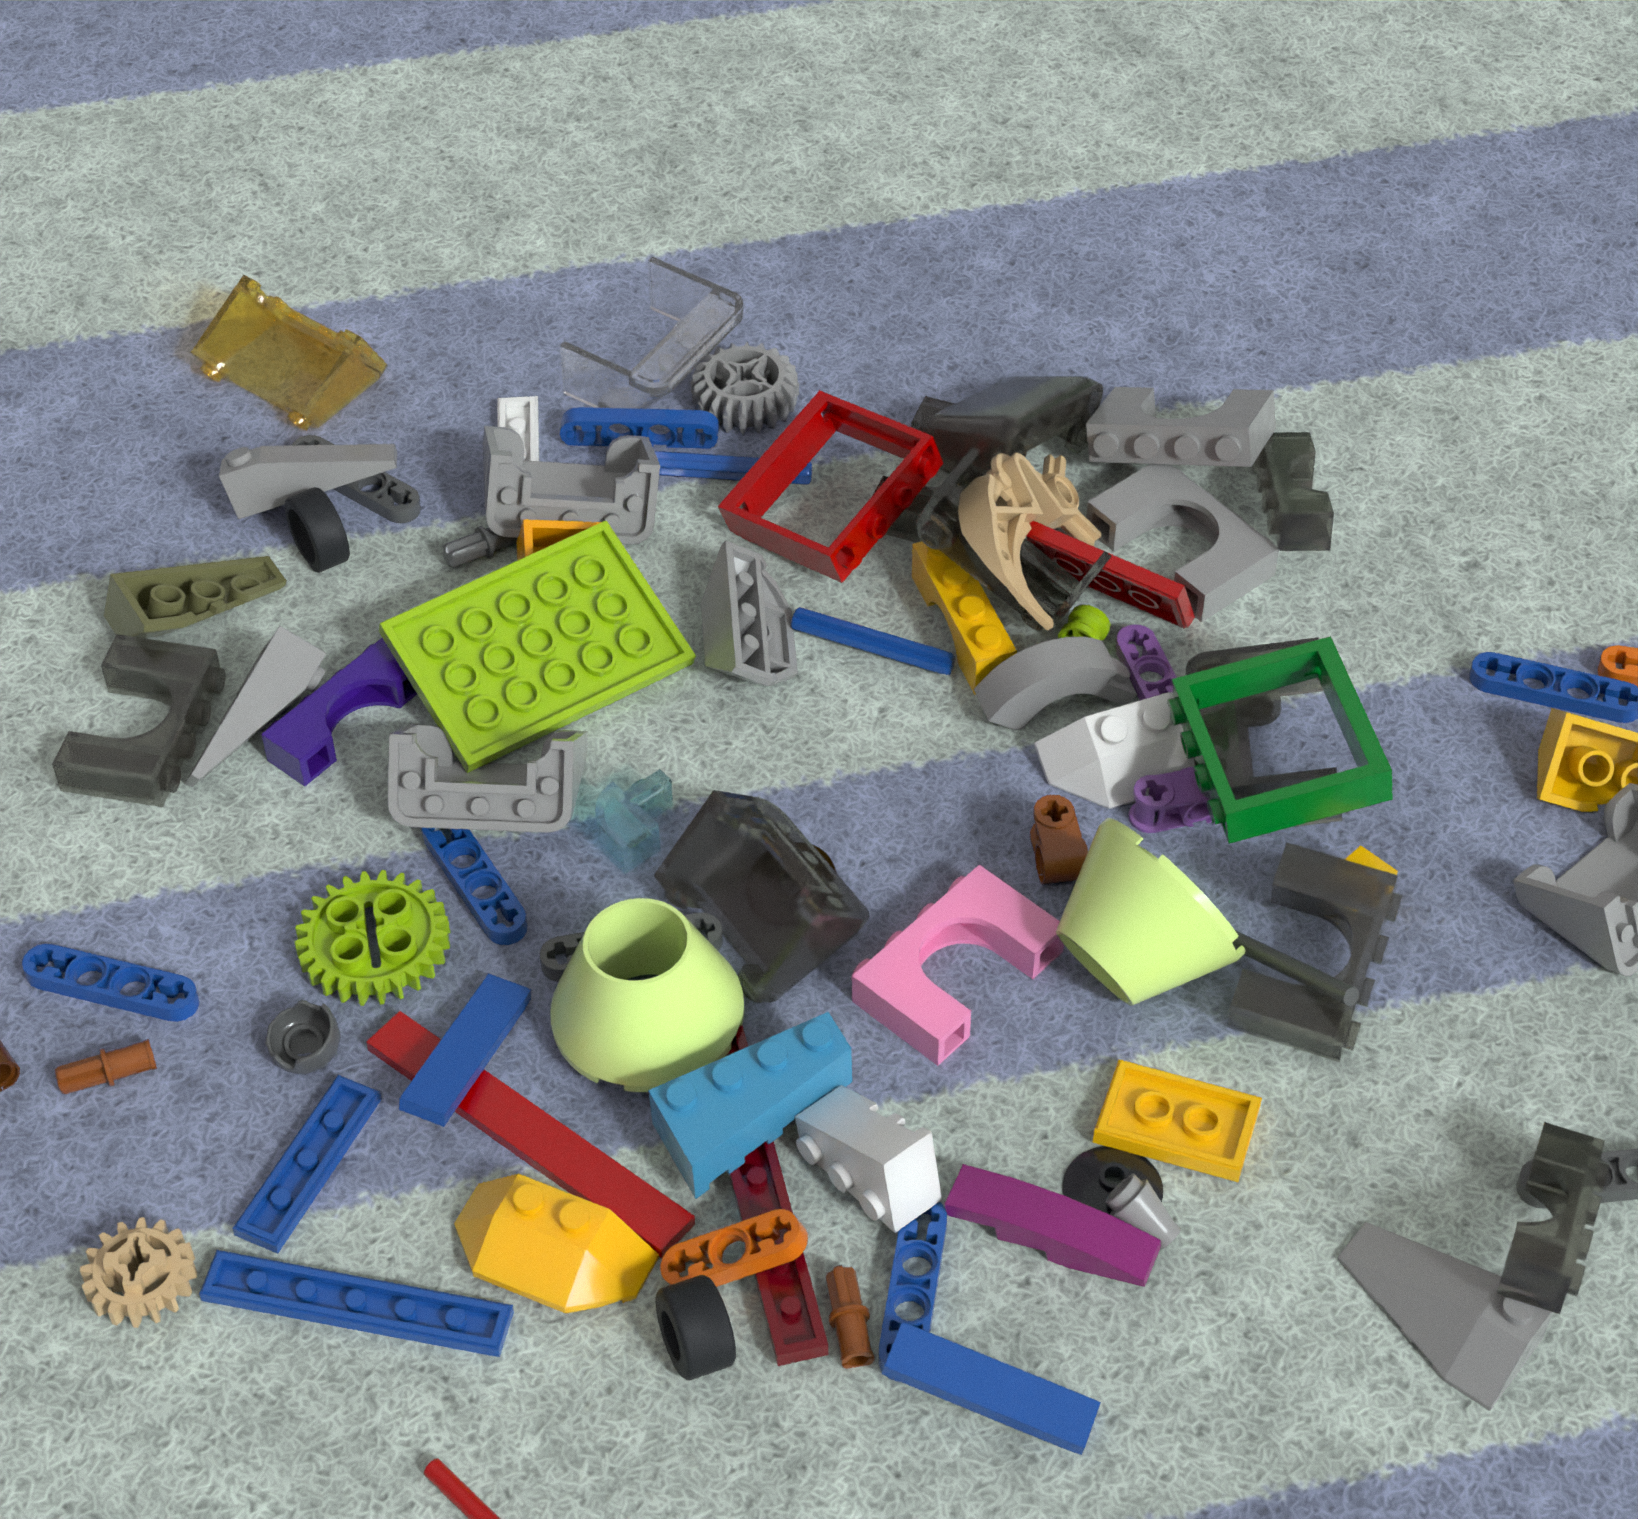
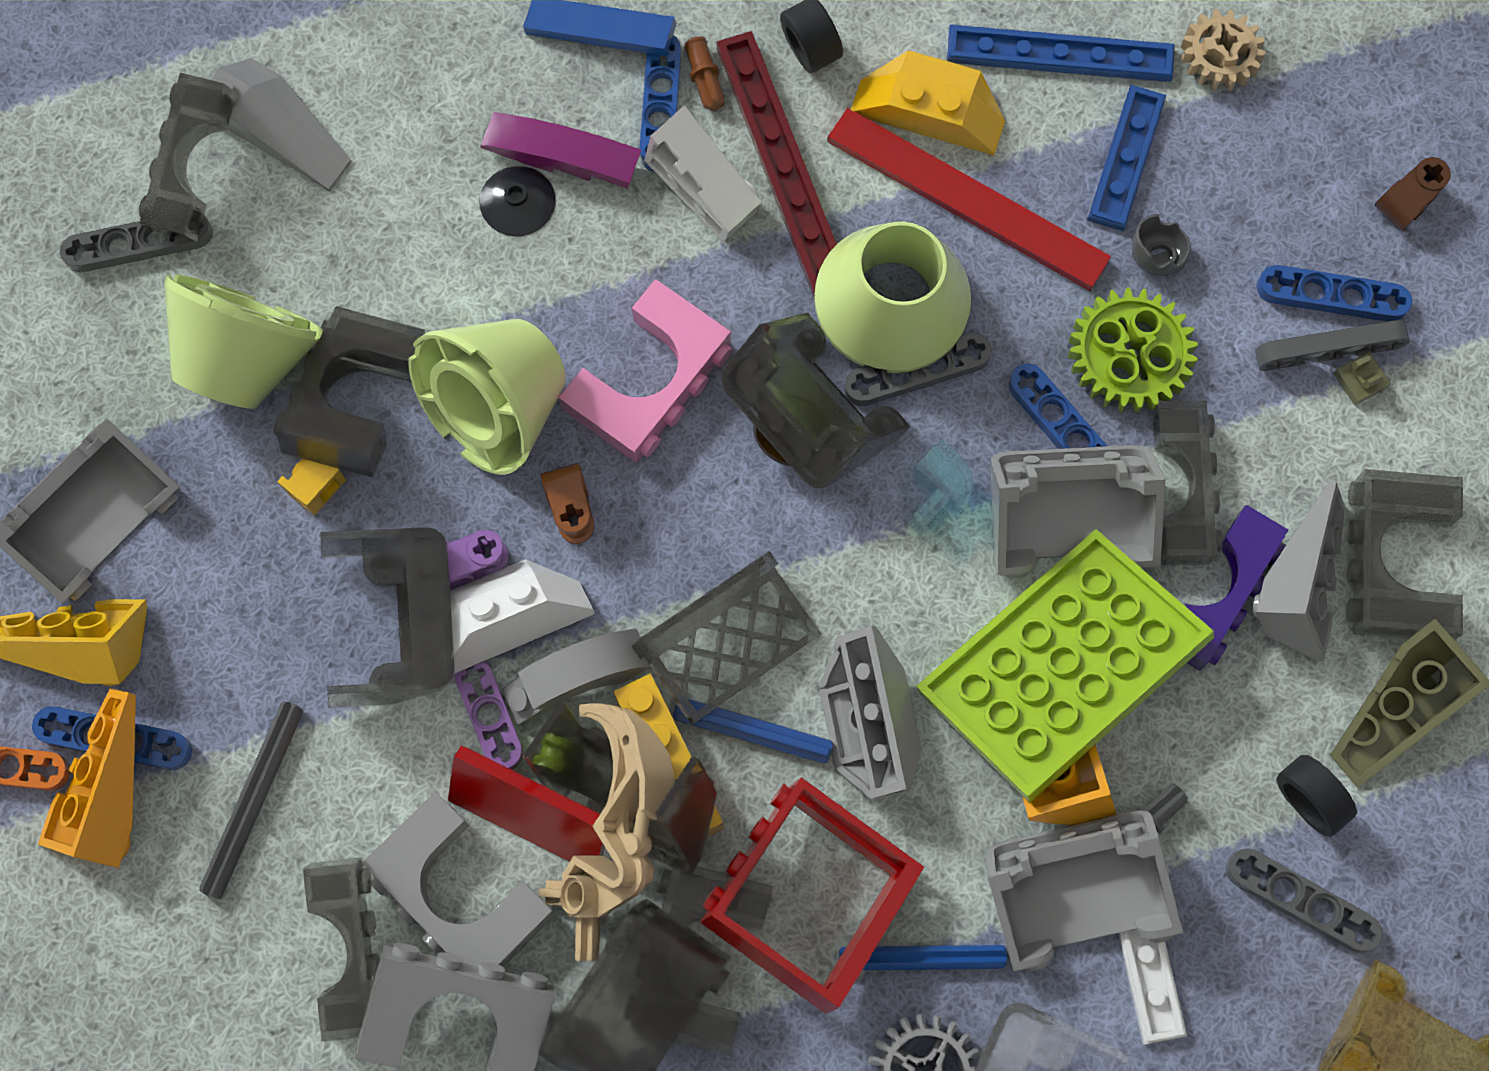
camera: 175 degrees right, 25 degrees up
(84, 925) = (1332, 345): none -> dark grey beam
(105, 1067) = (1308, 216): dark orange axle -> none
(113, 893) = (1362, 378): none -> olive tile
(271, 474) = (1355, 866): light grey wedge -> none
(340, 840) = (1183, 434): none -> clear smoke arch
(465, 1050) = (1029, 249): blue tile -> none
(639, 423) = (1036, 996): blue beam -> none
(711, 1246) = (780, 107): orange beam -> none
(747, 1098) = (801, 200): dark azure wedge -> none
(906, 720) = (707, 608): none -> clear smoke fence
(1139, 1206) = (497, 165): light grey cone -> none
(1177, 1120) = (467, 256): yellow tile -> none
(1295, 803) = (390, 628): green window -> none
(1297, 970) = (374, 371): dark grey bar -> none
(1399, 630) = (251, 800): none -> dark grey axle
(1433, 1036) = (230, 343): none -> yellowish green cone
(1564, 624) = (97, 808): none -> light orange wedge

